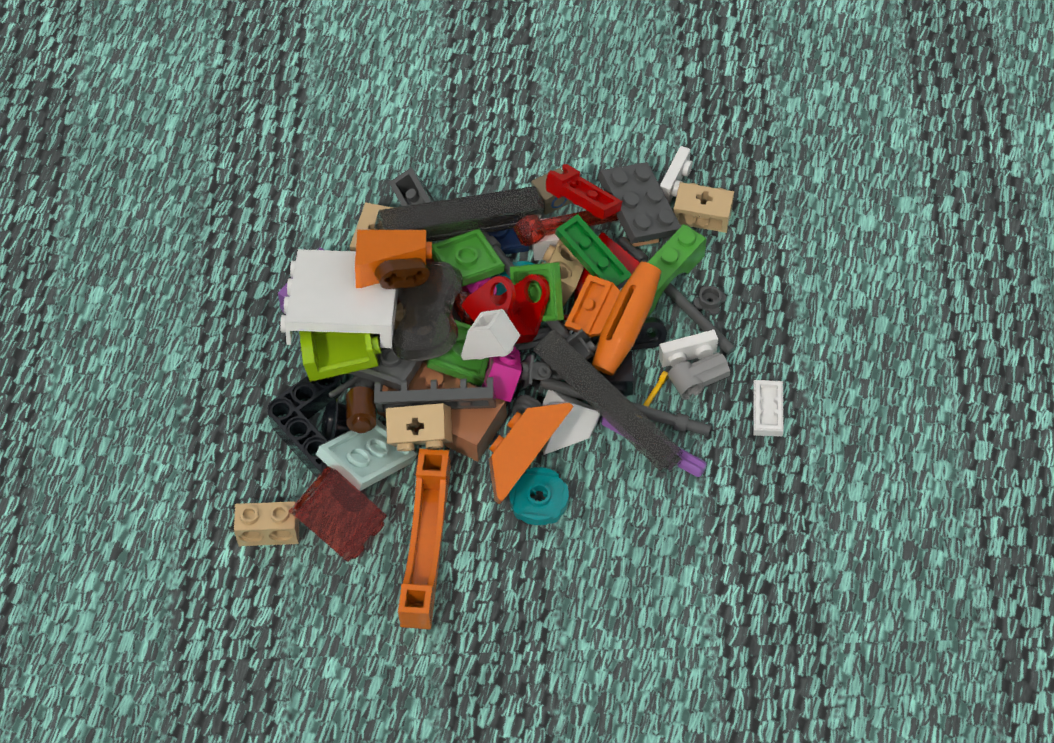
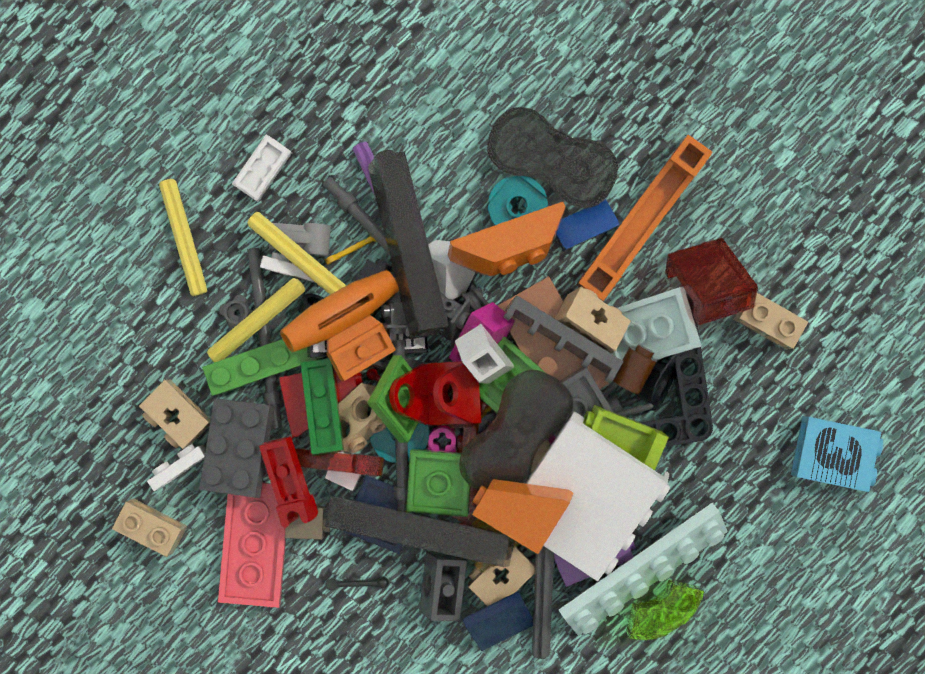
camera: 155 degrees left, 30 degrees up
(148, 455) = (837, 454): none -> medium azure panel
(230, 273) = (665, 612): none -> clear neon green brick
(264, 286) = (644, 569): none -> light aqua plate
(328, 226) = (542, 603): none -> dark grey axle
(357, 200) = (499, 621): none -> dark blue tile
(402, 273) = (523, 478): reddish brown beam -> none
(471, 514) = (586, 225): none -> blue slope
(503, 169) = (332, 583): none -> pearl dark grey hinge
(559, 543) = (531, 147): none -> clear smoke plate
(574, 143) = (252, 551): none -> coral plate
(666, 127) = (149, 527): none -> tan brick
(689, 297) = (256, 320): none -> light yellow axle
(691, 349) = (294, 253): none -> light yellow axle
(792, 328) = (183, 237): none -> light yellow axle

